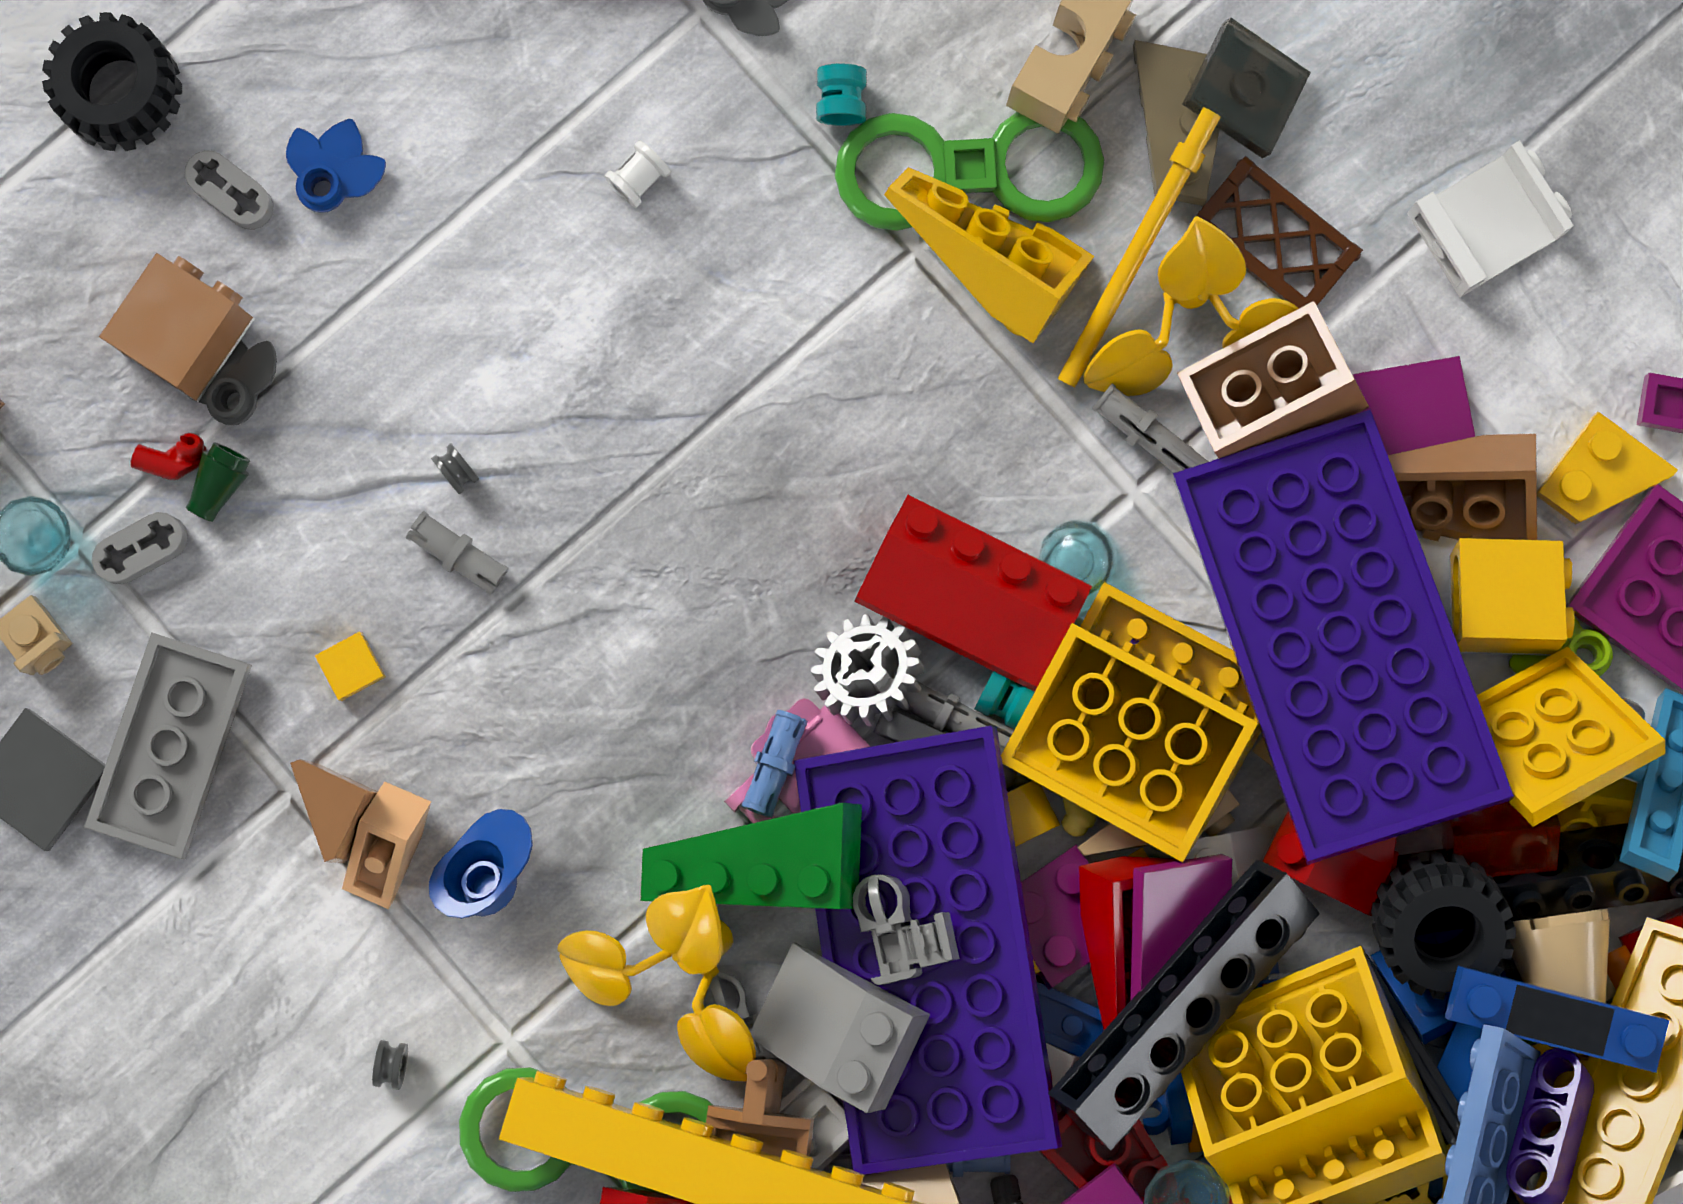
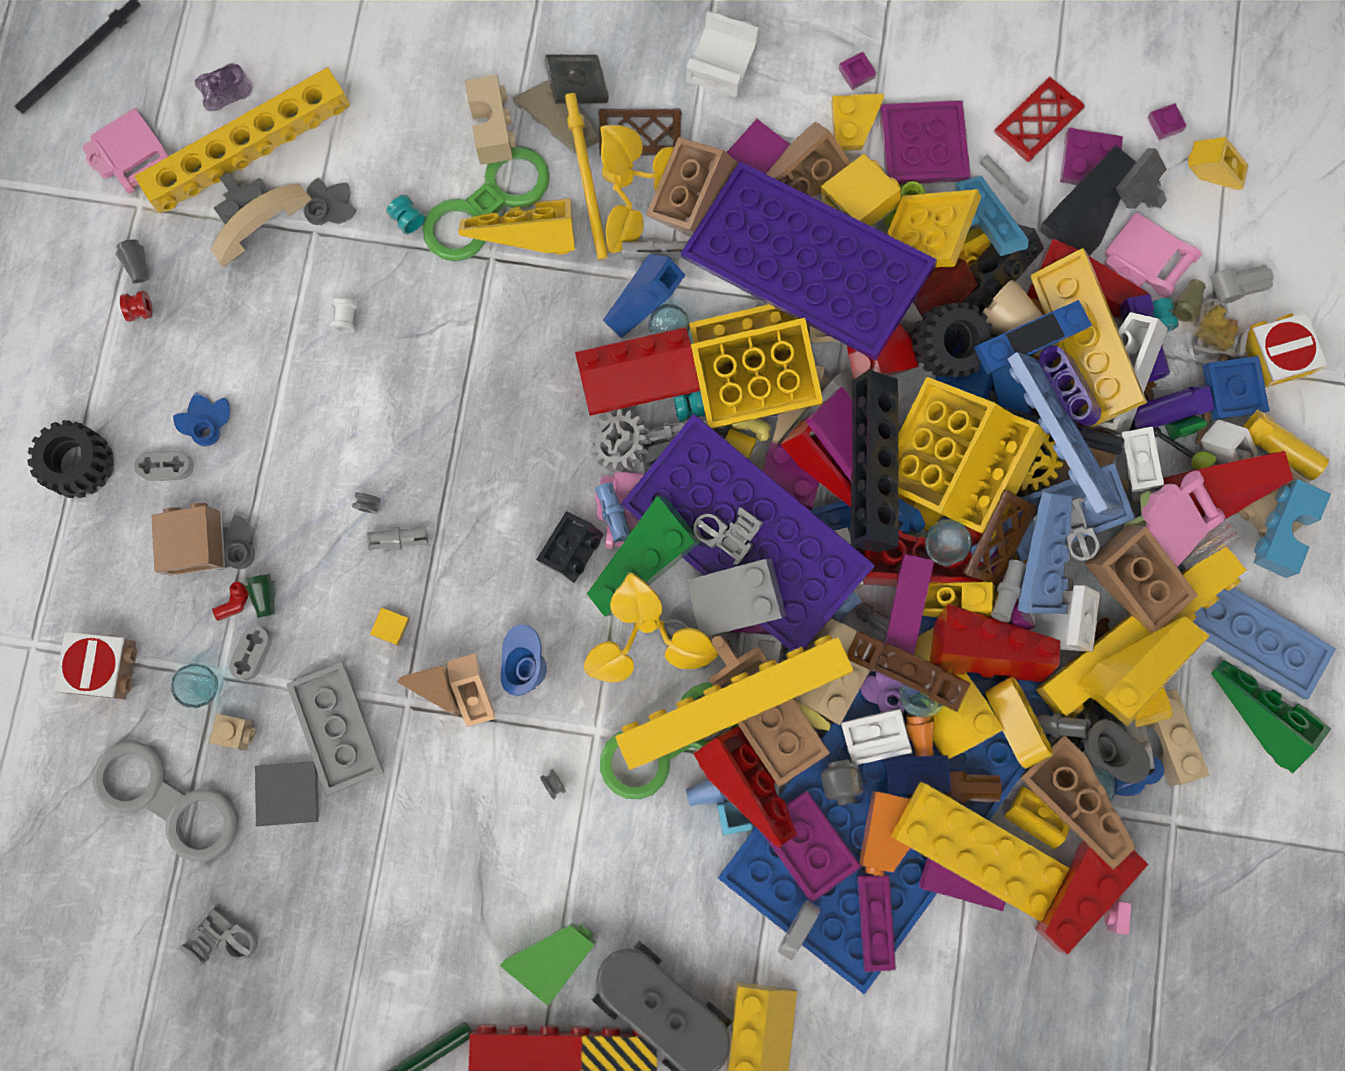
camera: 45 degrees left, 5 degrees down
(679, 760) = (570, 546): none -> black bracket
(1080, 487) = (644, 293): none -> blue slope

